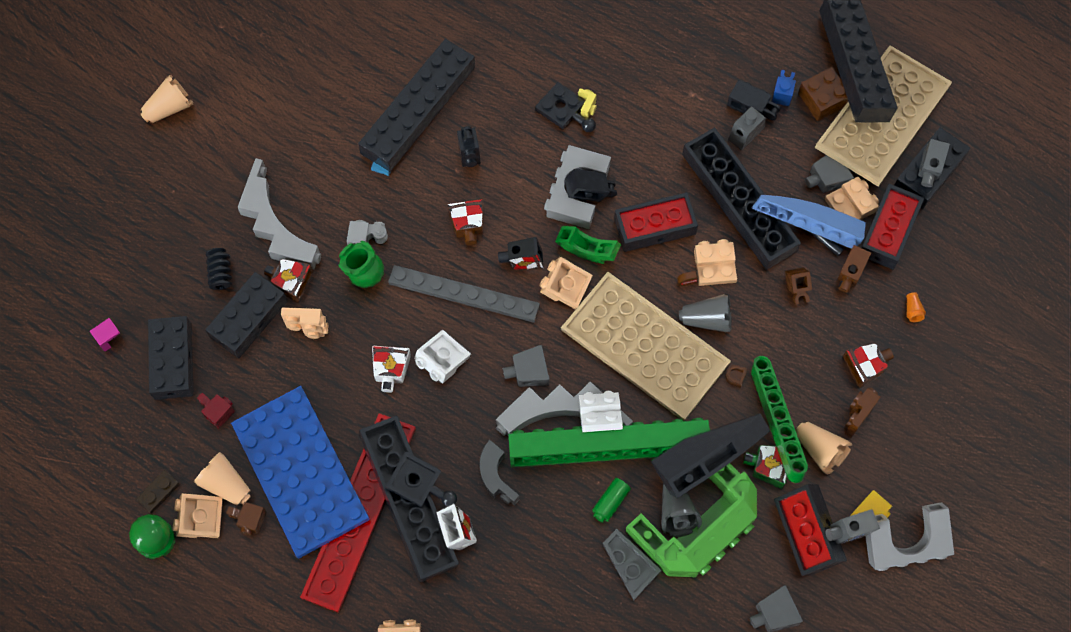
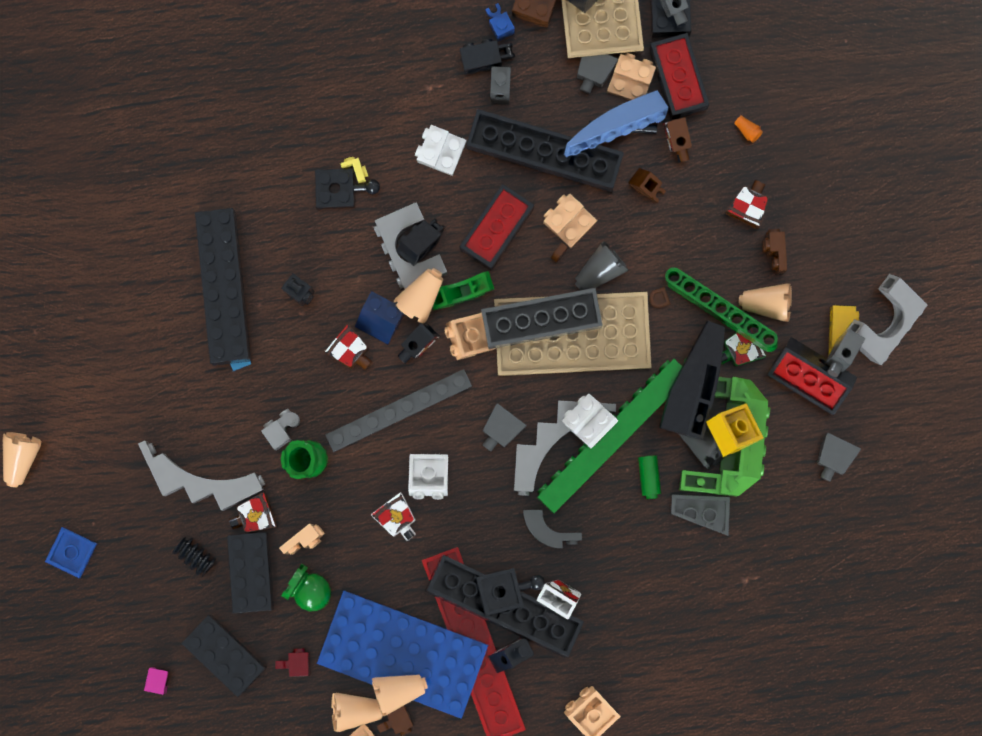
camera: 35 degrees left, 15 degrees up
(138, 197) = (71, 552): none -> blue tile
(267, 489) = (397, 691): none -> light nougat cone
(275, 362) = (309, 590): none -> green tile
(381, 541) = (514, 653): none -> black torso
(511, 216) = (379, 318): none -> dark blue slope
(554, 220) = (420, 295): none -> light nougat cone
(631, 309) = (542, 318): none -> dark grey brick
(661, 139) = (440, 150): none -> white plate
(710, 510) = (734, 429): none -> yellow slope

